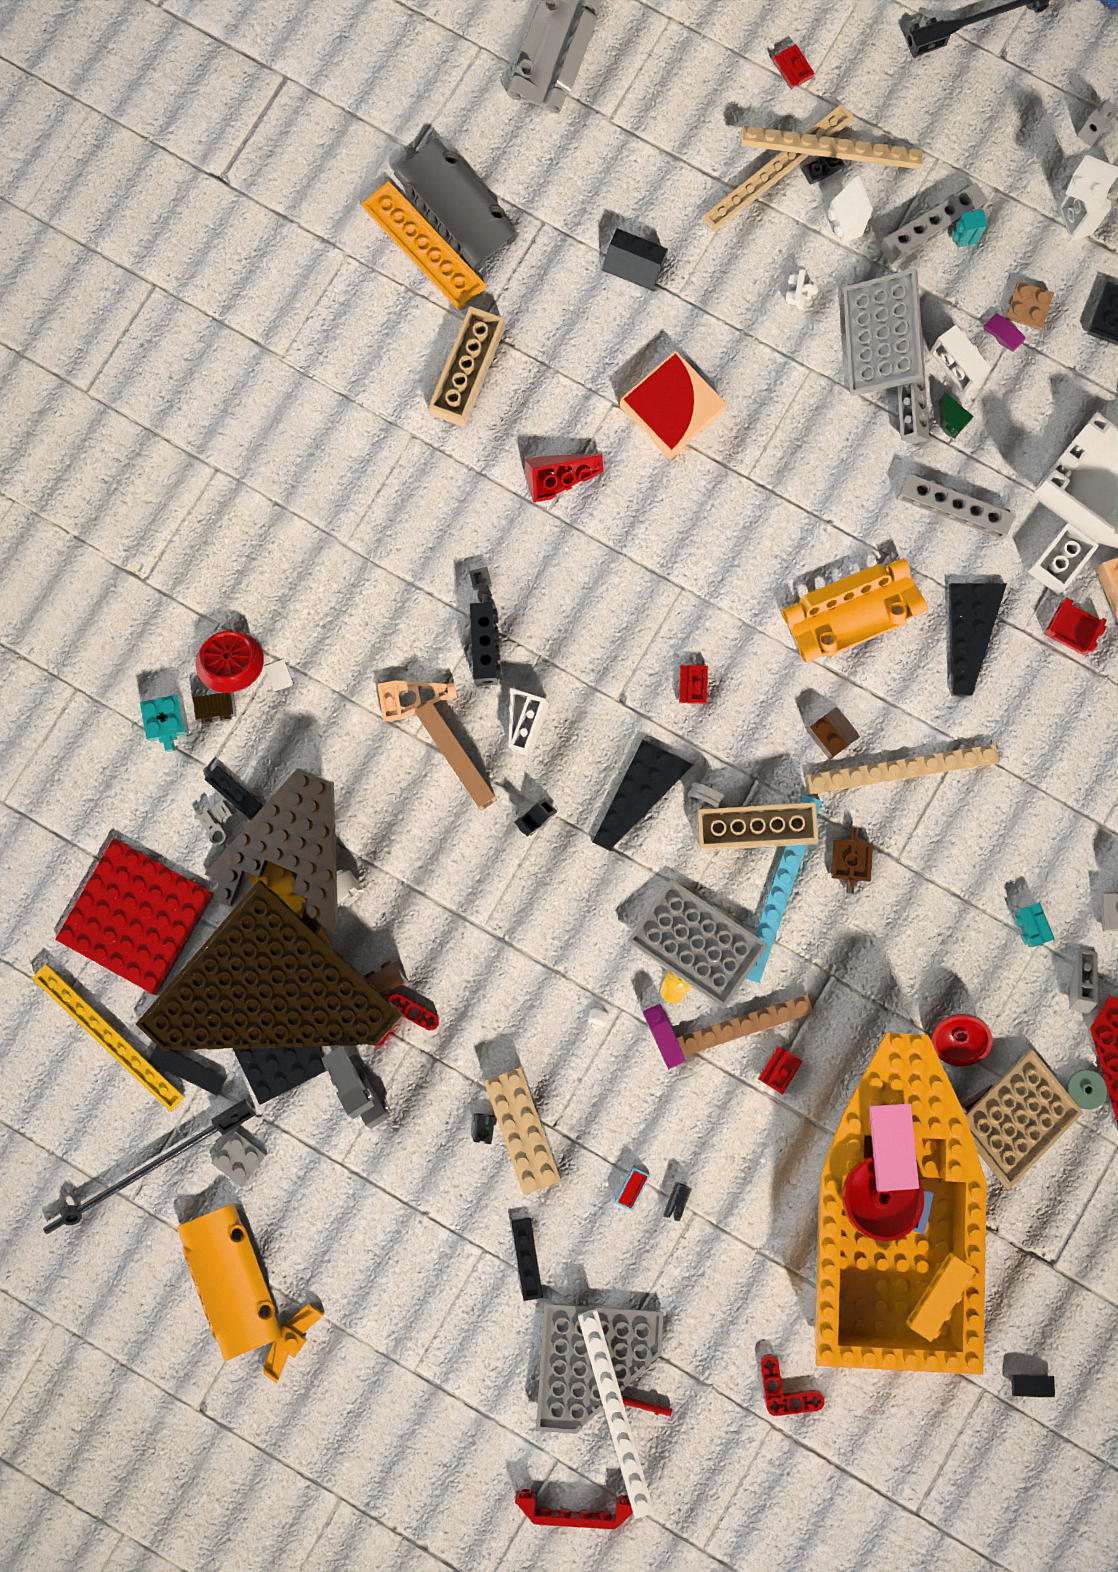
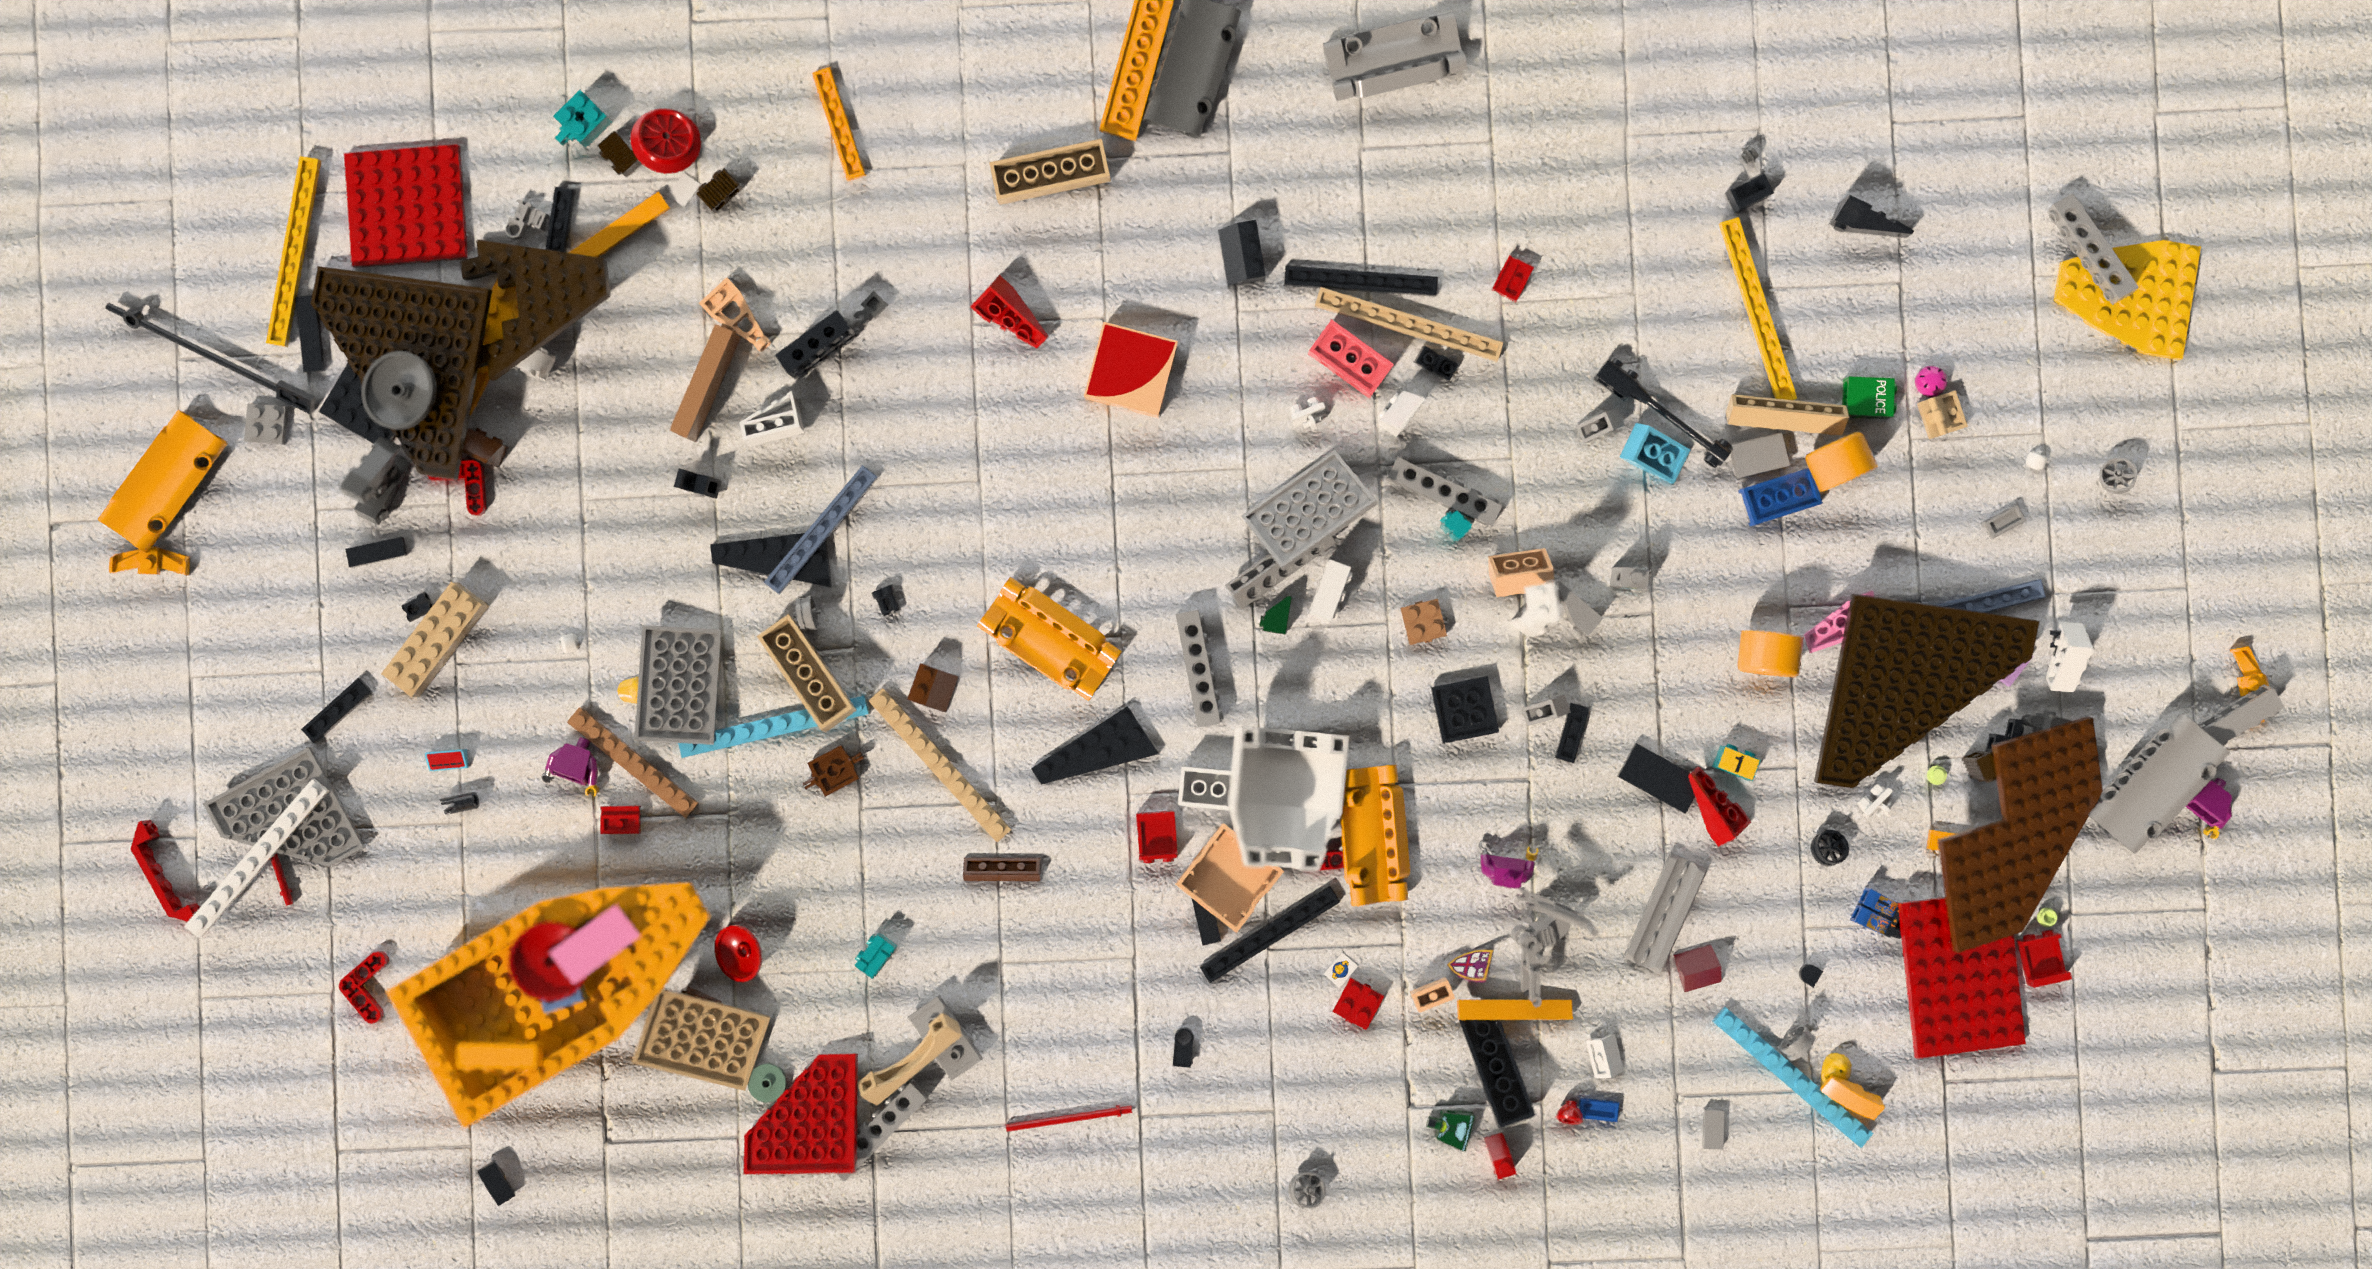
camera: 60 degrees right, 5 degrees up
(276, 743) = (623, 227): none -> light orange tile
(294, 1013) = (399, 390): none -> dark grey dish
(301, 644) = (719, 190): none -> dark brown brick
(311, 514) = (838, 124): none -> light orange tile
(412, 1134) = (376, 552): none -> black tile
(641, 740) = (820, 530): none -> sand blue tile
(664, 1036) = (584, 705): magenta slope -> none
(693, 684) = (898, 543): red plate -> none
(707, 1079) = (574, 764): none -> magenta torso
(710, 192) = (1360, 281): none -> black tile
(727, 723) = (883, 593): none -> black piece
(778, 227) = (1359, 350): none -> coral brick
(831, 147) = (1454, 359): tan plate -> none
(957, 71) = (1600, 425): none -> light grey slope
(1005, 44) = (1654, 452): none -> medium azure slope
(1005, 331) = (1384, 615): magenta slope -> none
(1023, 773) = (1002, 869): none -> reddish brown slope
(1041, 200) = (1519, 570): none -> light nougat brick
(1084, 983) = (855, 1025): light grey slope -> none

